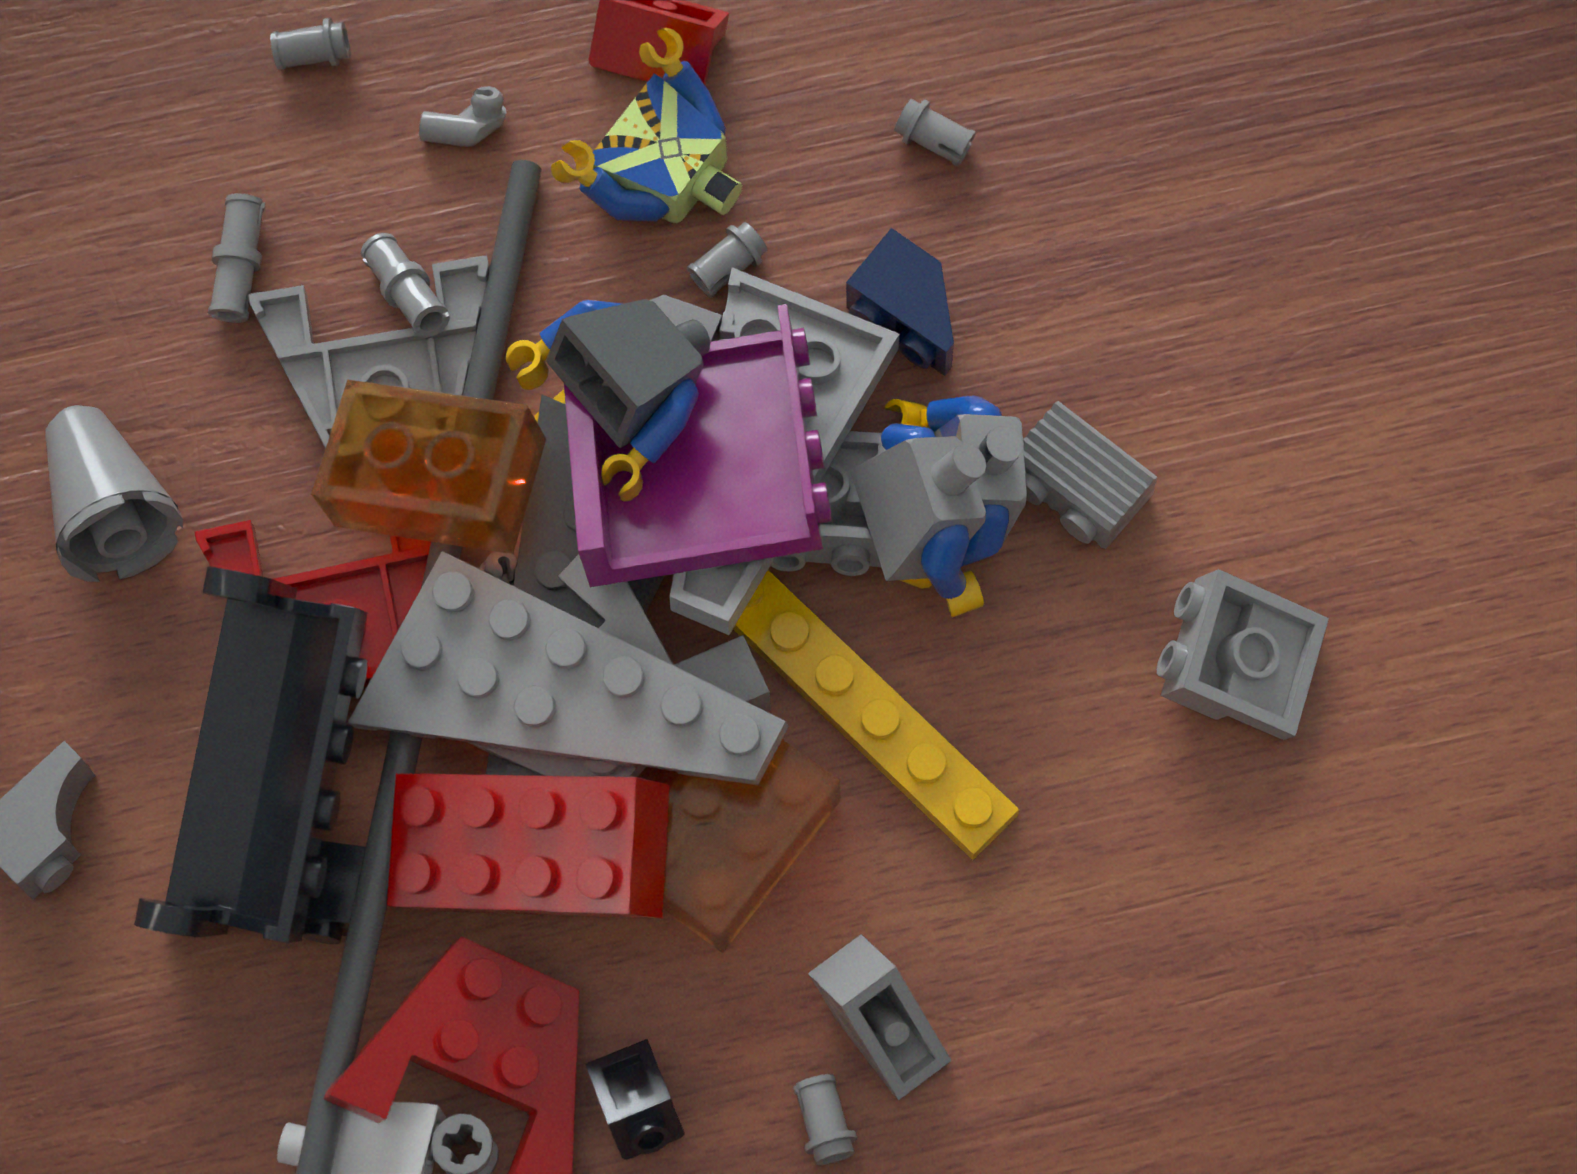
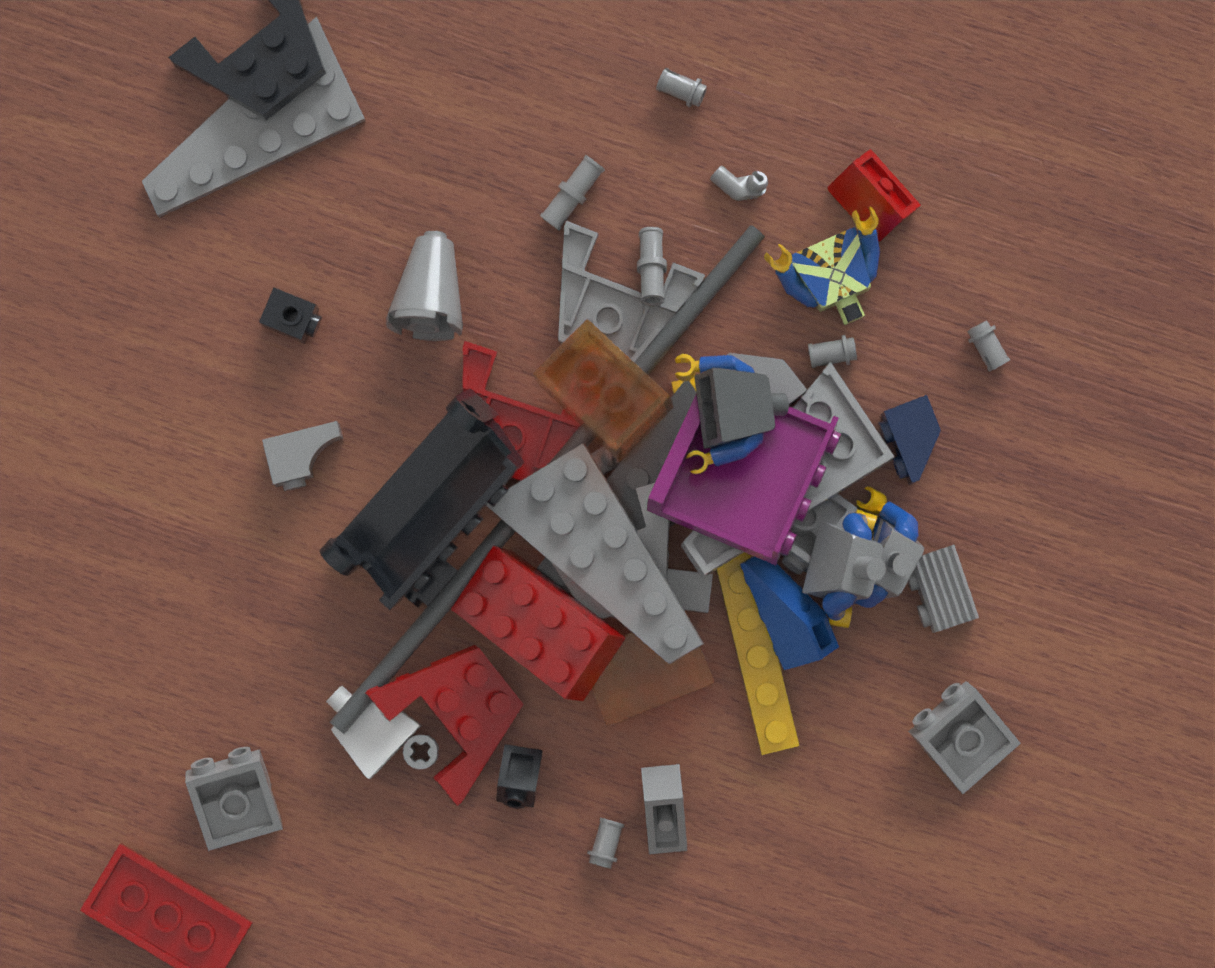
camera: 30 degrees right, 15 degrees up
(895, 631) = (791, 617): none -> blue slope

